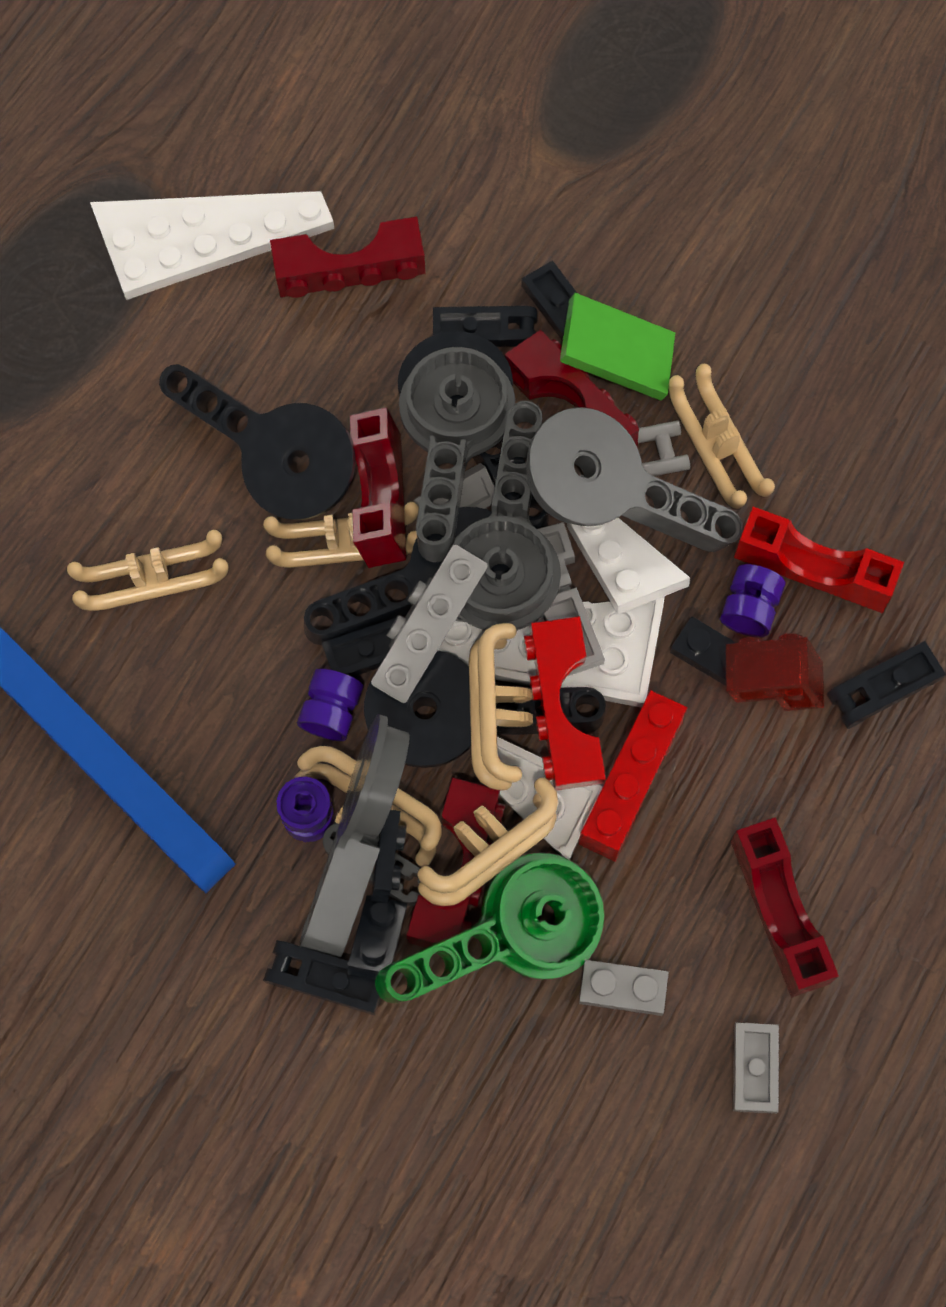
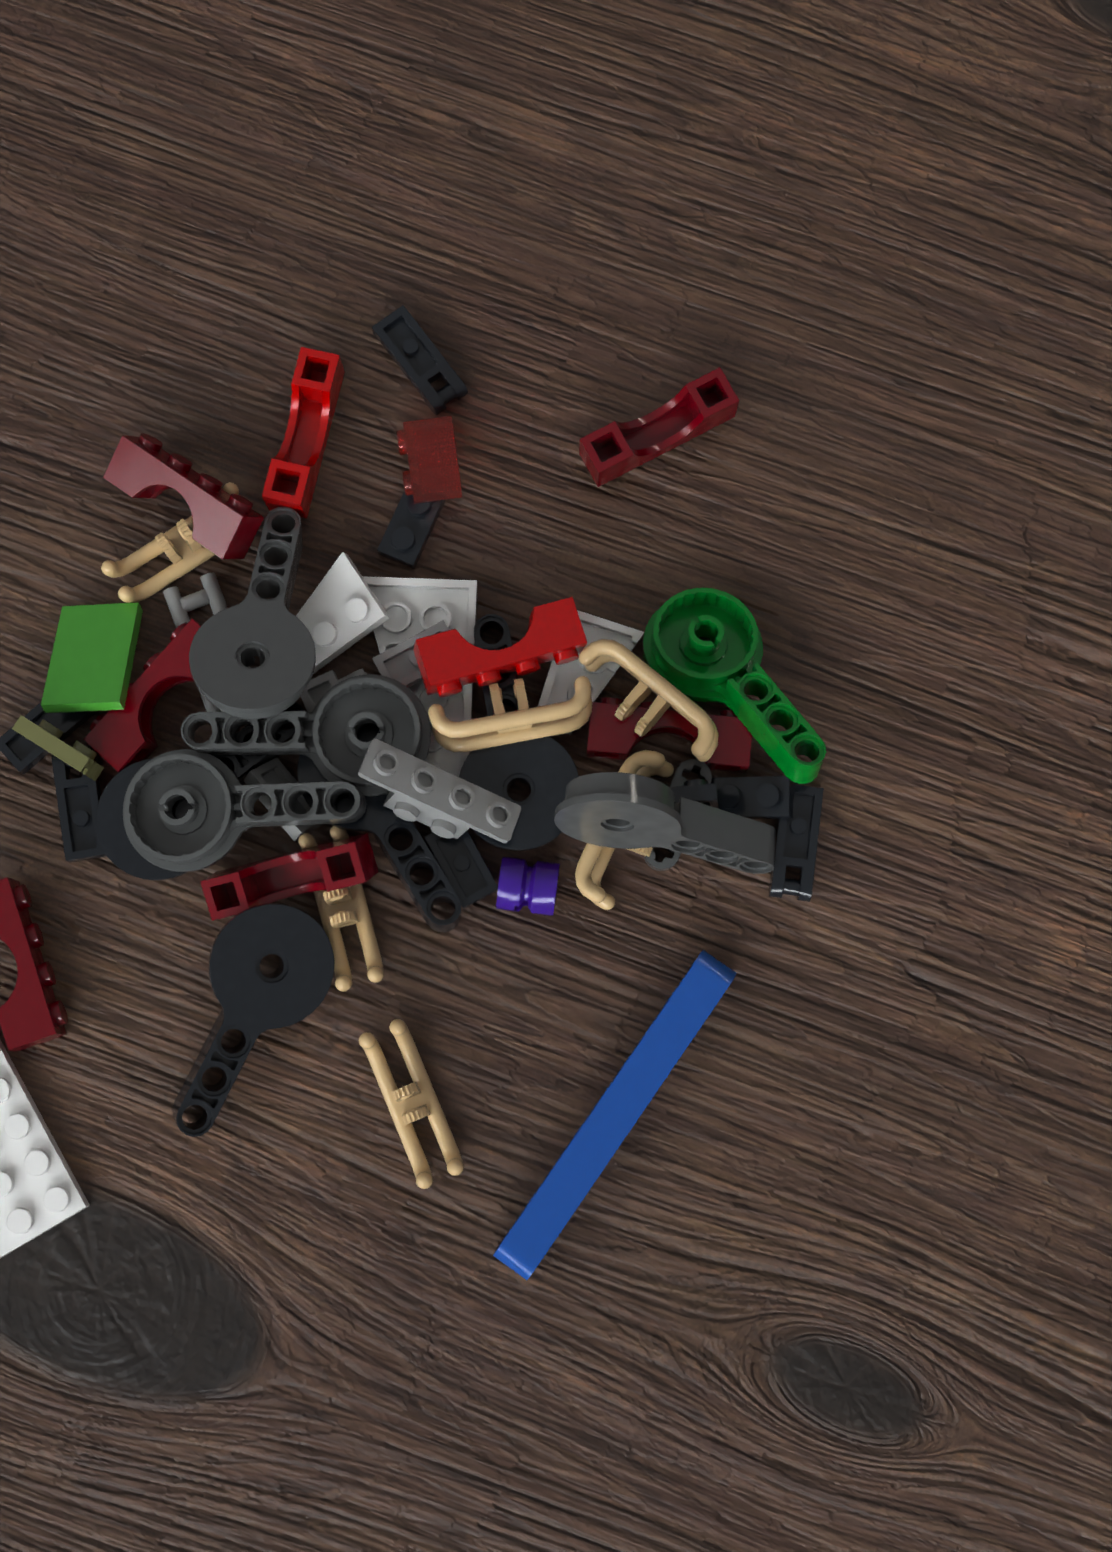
camera: 100 degrees left, 10 degrees up
(305, 808) = (640, 888): dark purple wheel -> none
(537, 300) = (48, 738): none -> olive plate
(623, 987) = (753, 565): light grey plate -> none
(632, 776) = (526, 571): red arch -> none
(735, 468) = (220, 520): none -> dark red arch
(752, 600) = (368, 491): dark purple wheel -> none
(756, 1068) = (806, 438): light grey plate -> none

